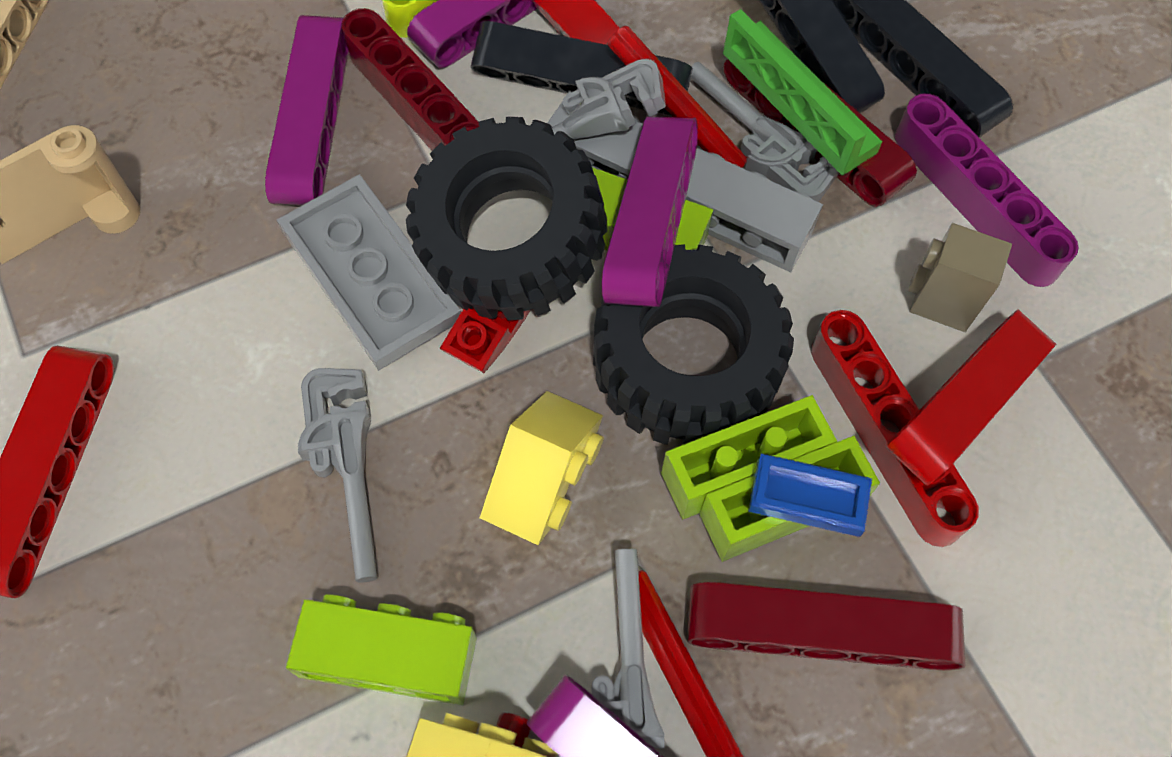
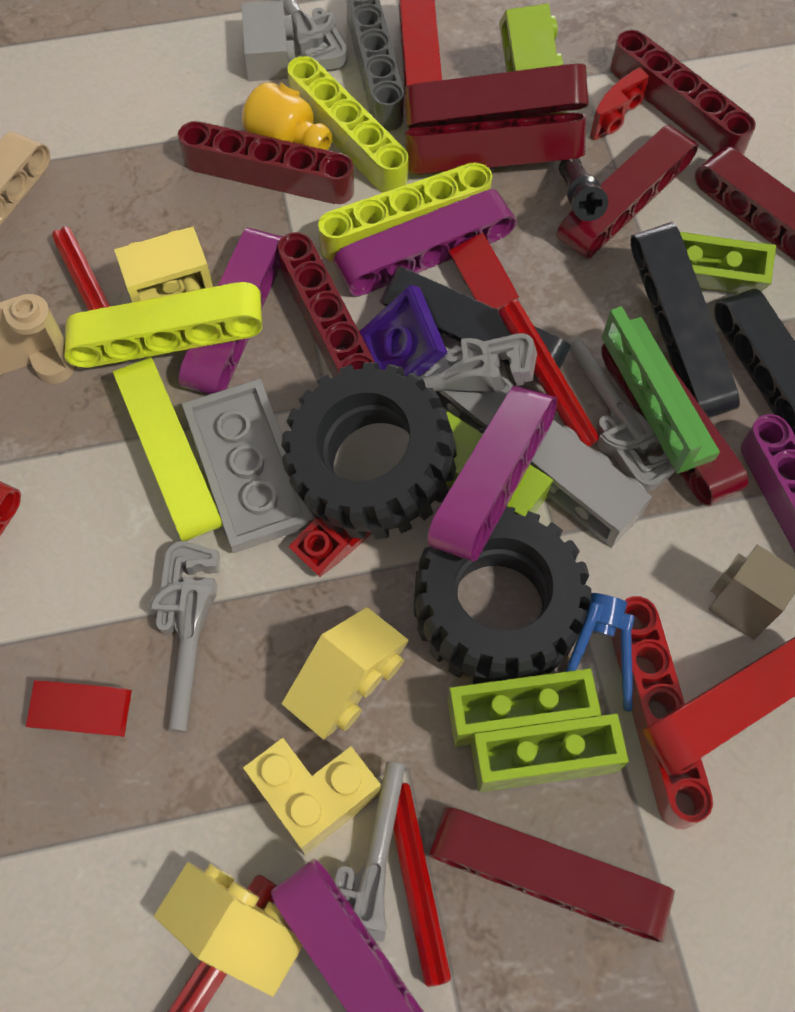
camera: 15 degrees right, 0 degrees up
(134, 119) = (79, 269): none -> red axle
(224, 75) = (164, 265): none -> light yellow brick
(232, 136) = (163, 325): none -> neon yellow beam
(244, 581) = (79, 708): none -> red slope
(273, 273) = (167, 450): none -> neon yellow beam
(383, 649) = (175, 795): lime brick -> none
(510, 86) = (405, 334): none -> dark purple tile
(542, 619) = (314, 804): none -> light yellow brick
(810, 495) = (563, 758): blue tile -> none
(811, 339) = (603, 618): none -> blue plant

